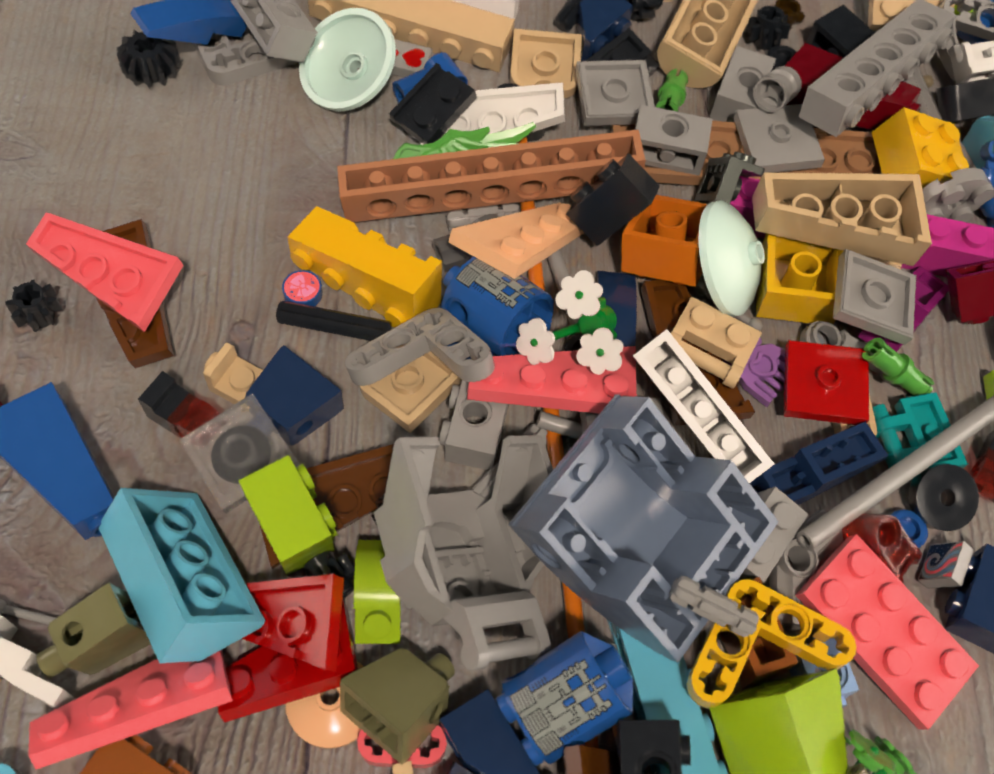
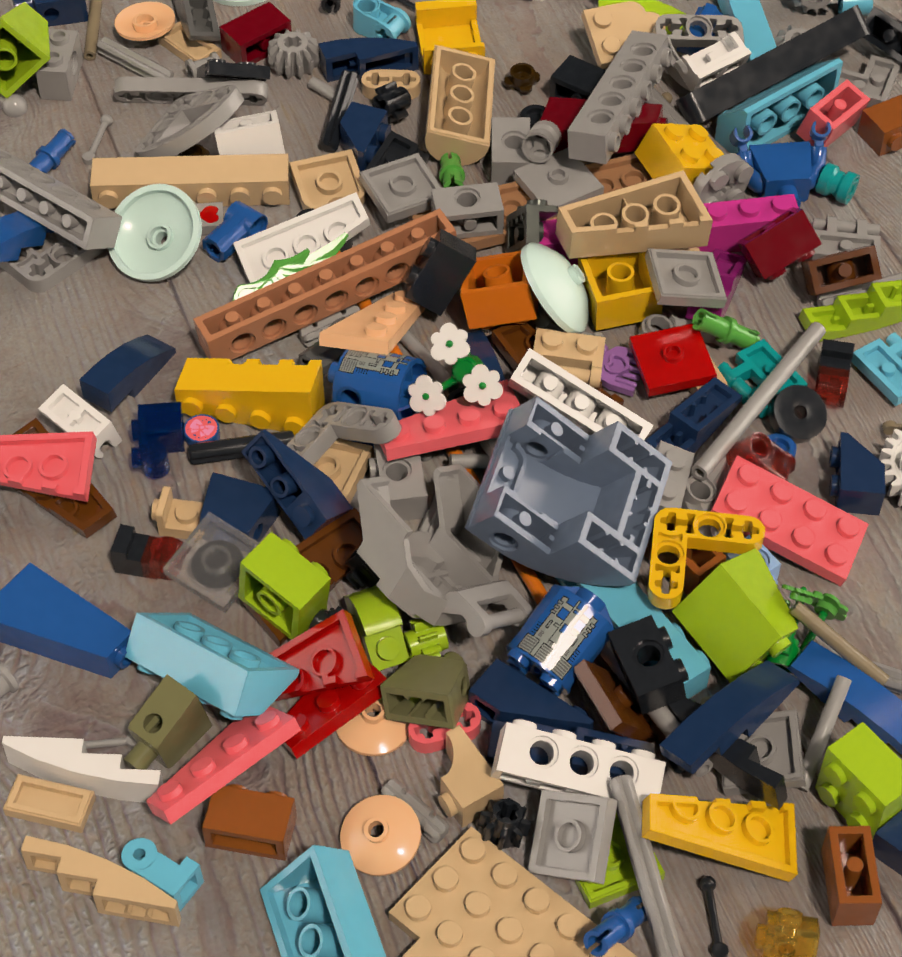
camera: 15 degrees left, 10 degrees down
(182, 236) = (76, 415): none -> white hinge
(252, 274) = (158, 433): none -> clear blue brick
(255, 197) = (125, 371): none -> dark blue slope
(363, 400) = (296, 484): none -> dark blue slope
(420, 634) = (425, 639): none -> lime gear
(433, 105) = (249, 246): black plate -> none
(714, 606) = (646, 528): light grey axle -> none
(768, 27) = (512, 93): black gear -> none
(946, 565) = (817, 461): light grey tile -> none

